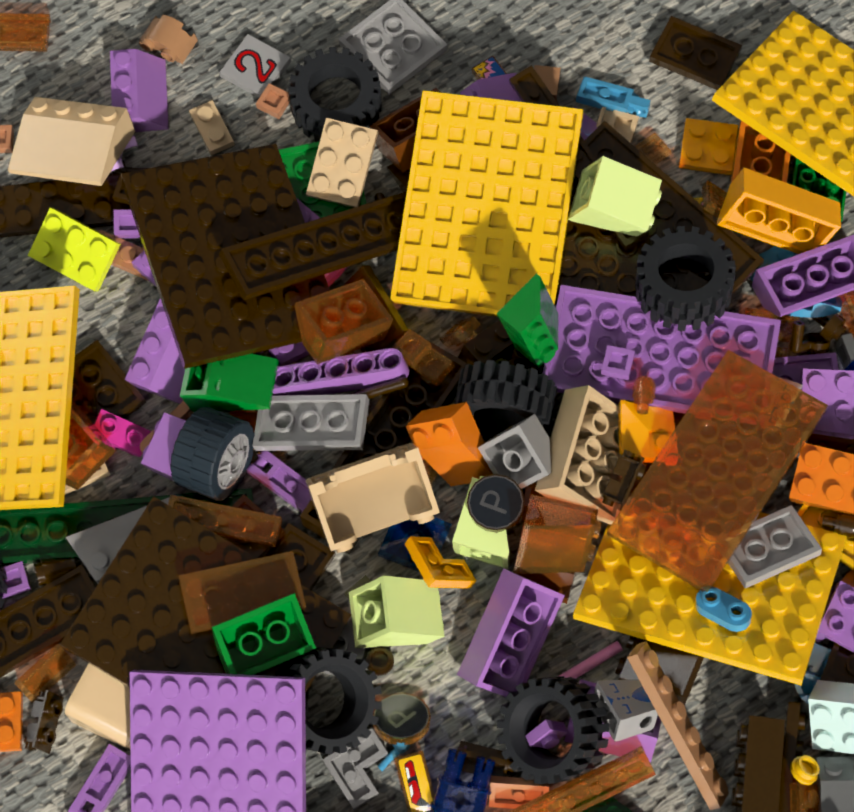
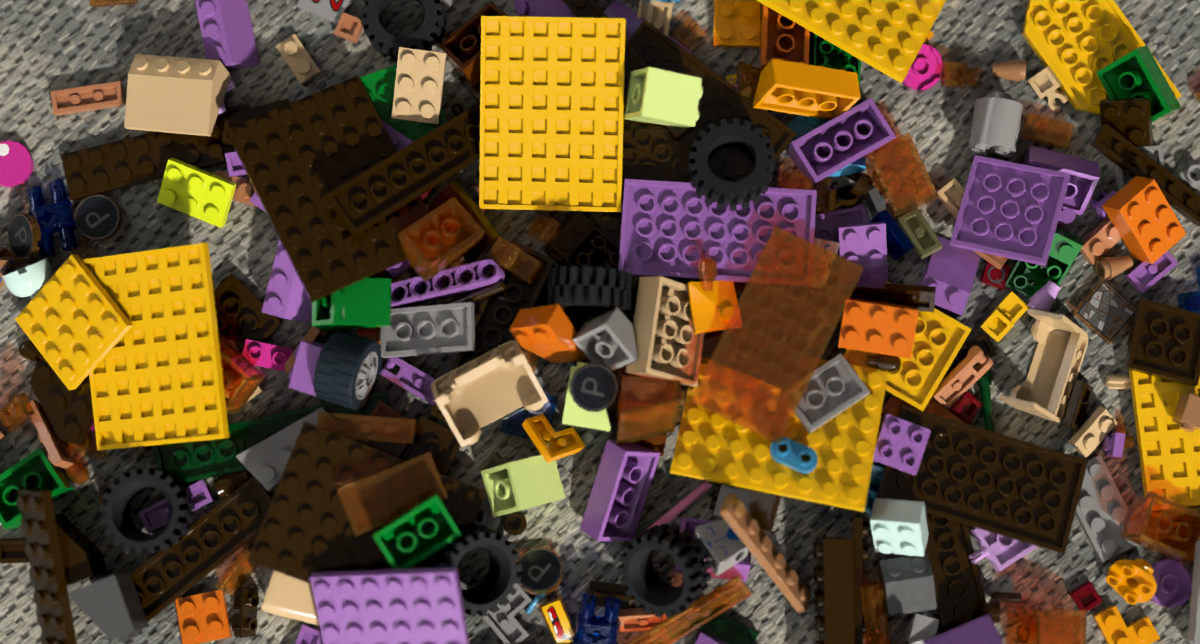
camera: 10 degrees left, 15 degrees up
(532, 322) = (606, 224): green slope -> none
(547, 734) = (660, 572): medium lavender plate -> none
(618, 362) = (682, 247): medium lavender plate -> none
(630, 471) = (703, 344): dark brown hinge -> none
(804, 769) = (871, 574): yellow plate -> none

